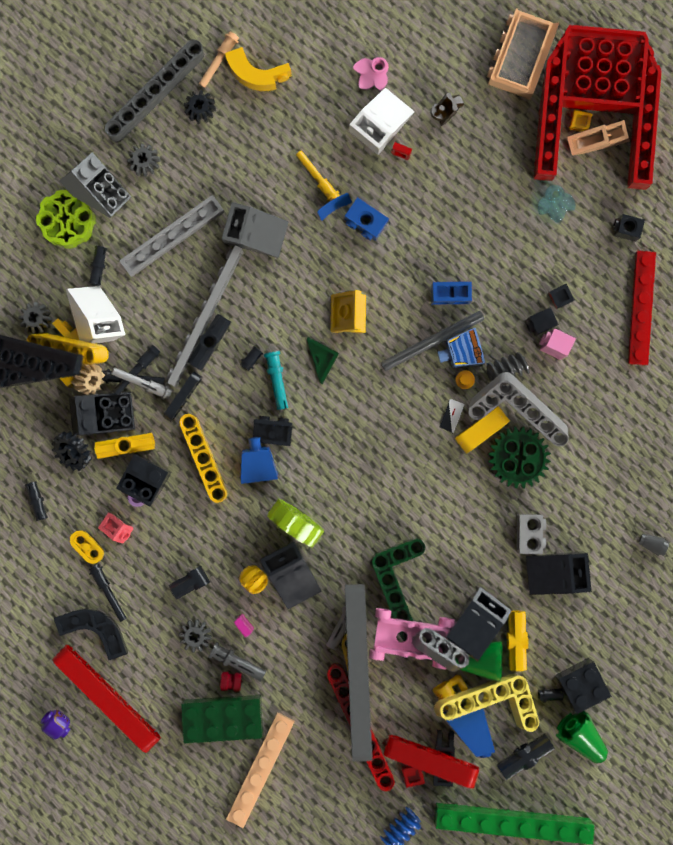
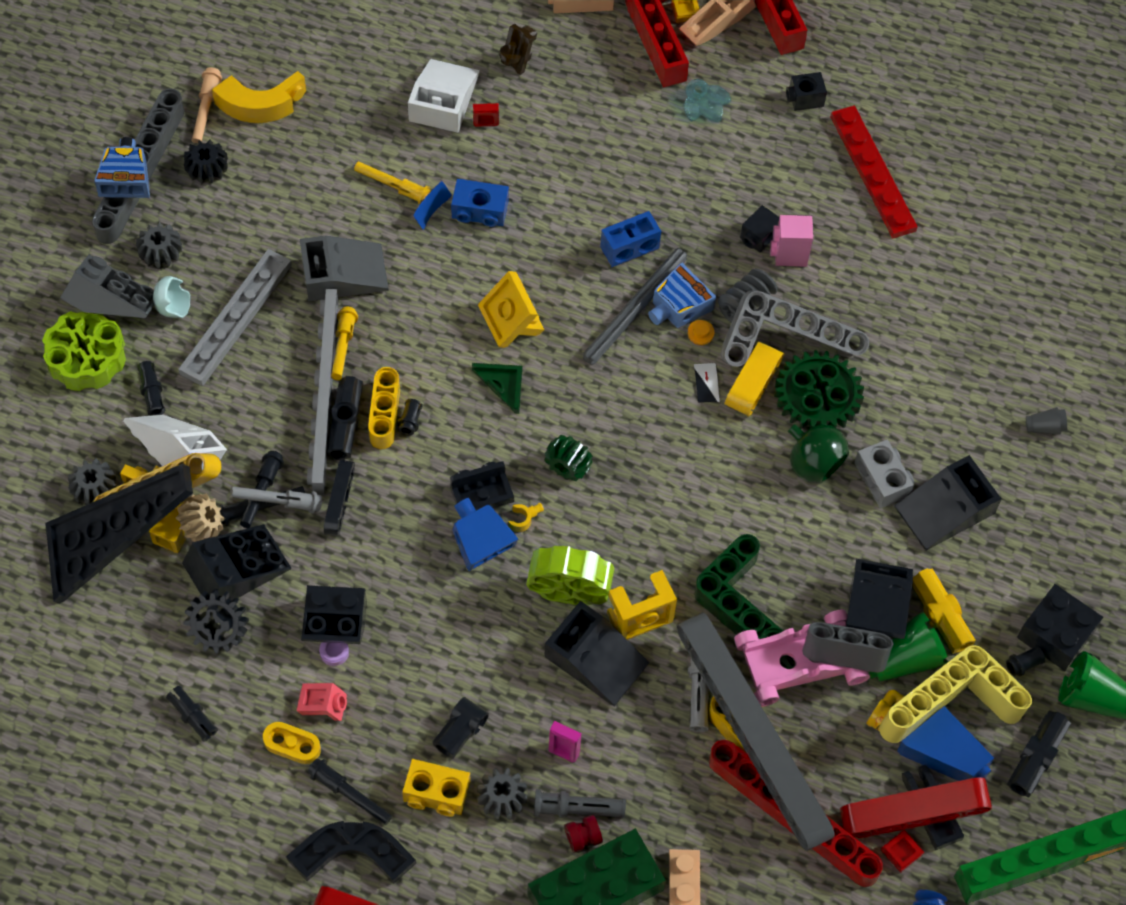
camera: 25 degrees left, 25 degrees down
(113, 447) = (272, 598): yellow piece -> none
(135, 205) = (170, 298): none -> light aqua hair
(138, 97) = (123, 171): none -> torso
(161, 610) = (439, 780): none -> yellow brick
(196, 451) = (401, 548): yellow beam -> none
(236, 278) = (346, 319): none -> yellow pin
(237, 336) = (384, 397): none -> yellow beam
(253, 579) = (547, 681): yellow piece -> none
(274, 370) = (449, 418): teal pin -> none
(296, 458) = (529, 512): none -> yellow piece
(330, 564) = (646, 615): none -> yellow panel
(335, 435) = (568, 458): none -> dark green gear
(370, 75) = (406, 53): bright pink plate -> none
(494, 502) = (817, 452): none -> dark green piece
(561, 296) = (768, 194): black plate -> none

